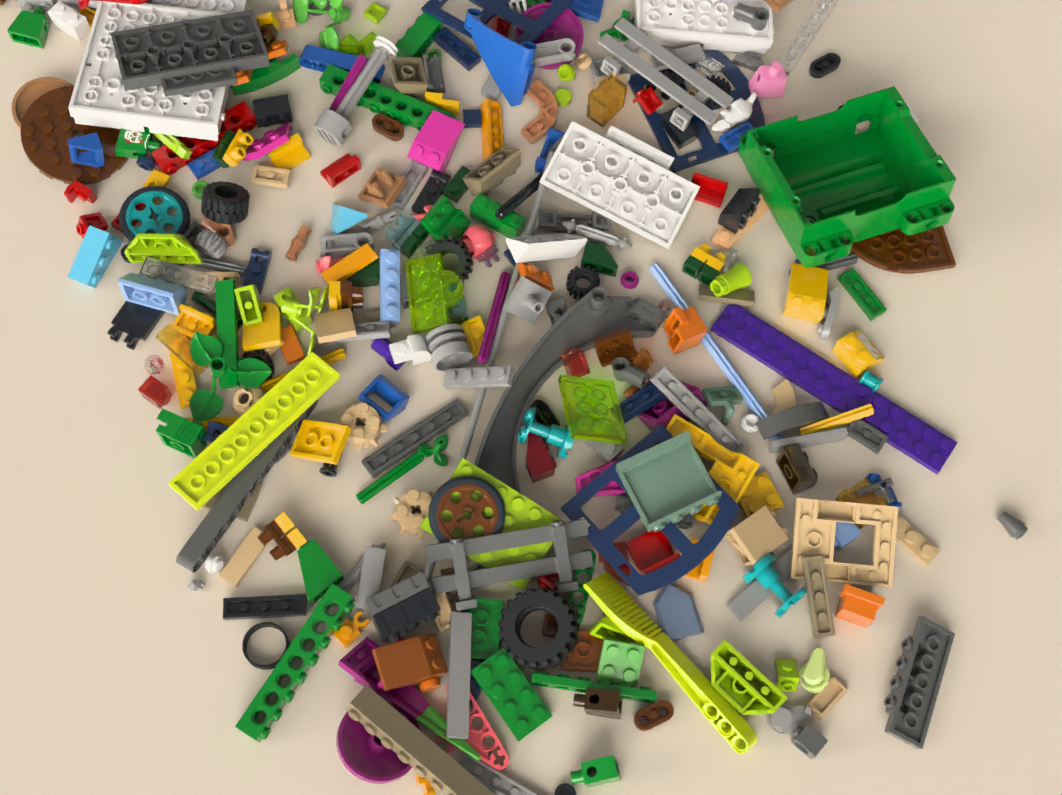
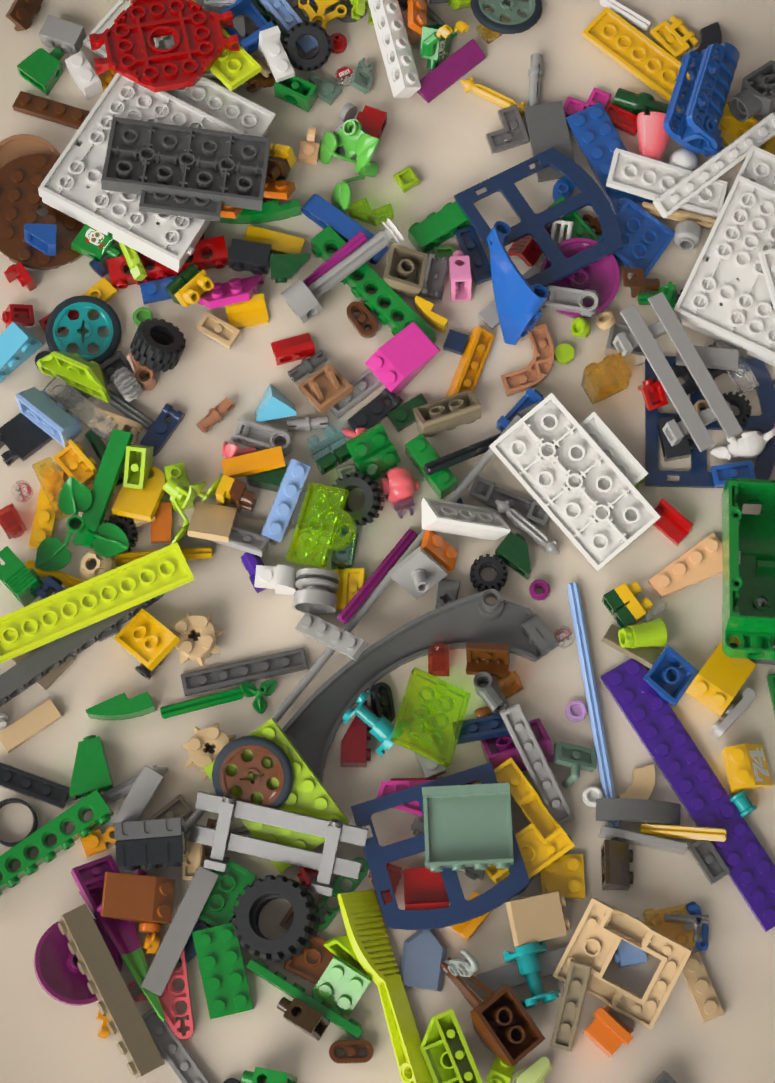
camera: 30 degrees right, 5 degrees up
(50, 57) = (50, 110): none -> reddish brown plate
(288, 543) = (72, 730): reddish brown hips -> none
(296, 93) = (280, 242): none -> yellow tile
(307, 106) = (287, 265): none -> dark green slope
(323, 508) = (121, 708): none -> green slope
(358, 178) = (307, 366): none -> dark grey pin
(389, 393) = (237, 615): blue tile -> none
(437, 698) = (151, 943): none -> light orange plate
(453, 60) = (460, 271): none -> bright pink torso
(596, 23) = (638, 281): none -> reddish brown bracket
(684, 329) = (569, 669): orange plate -> none
(703, 362) = (576, 711): none -> lavender tile
(739, 209) = (689, 559): black slope -> none
(766, 628) = (497, 1019): none -> reddish brown slope
(768, 303) = (670, 675): none -> blue slope

